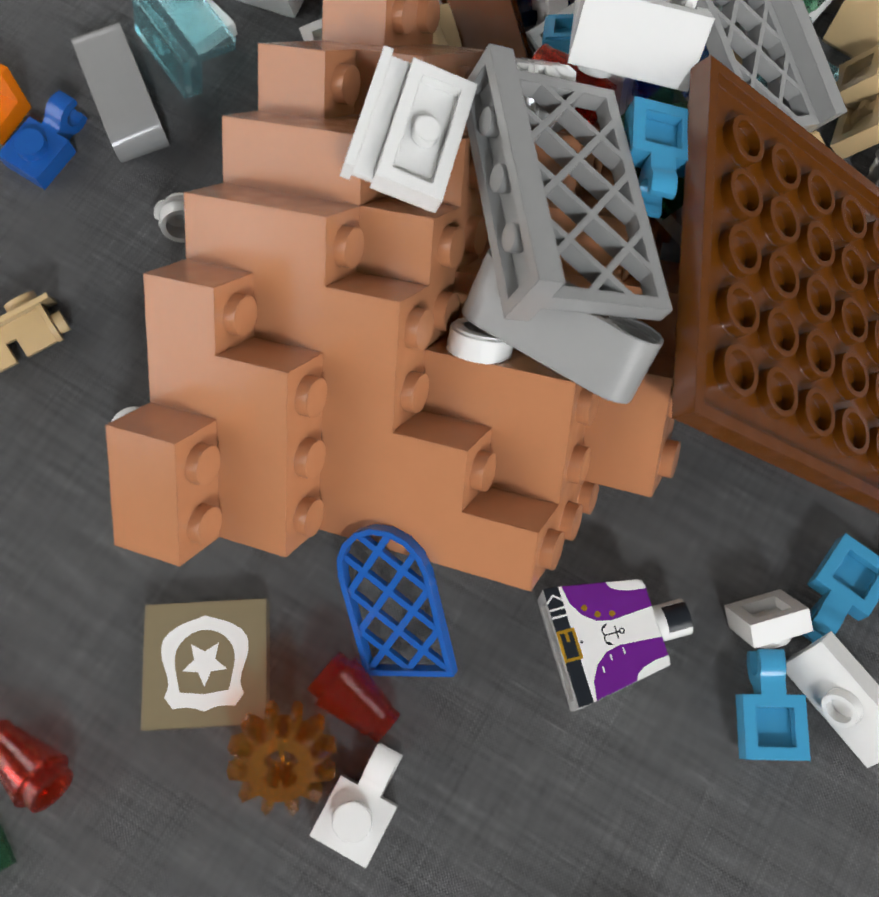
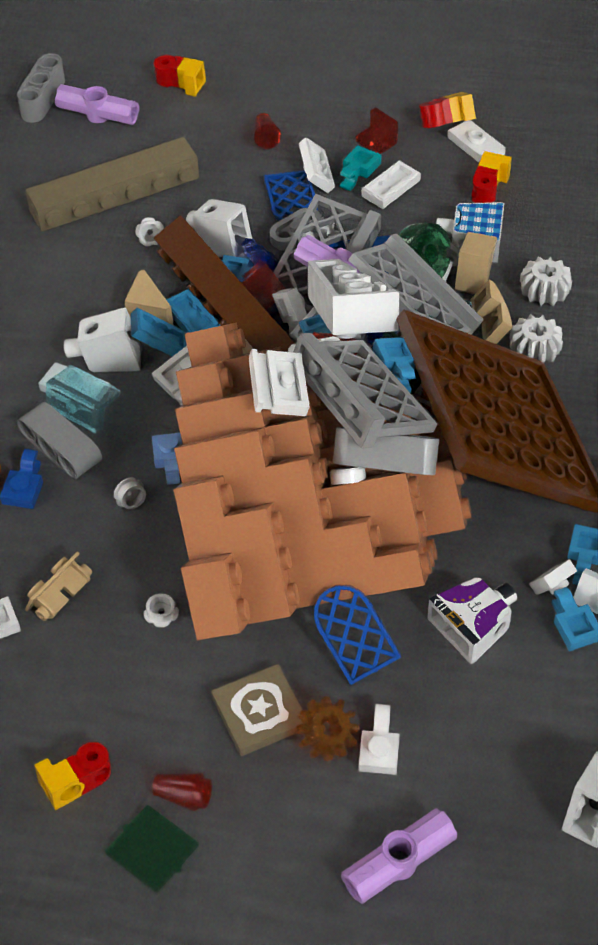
camera: 20 degrees left, 20 degrees down
(353, 697) = (351, 690): clear red cone -> none

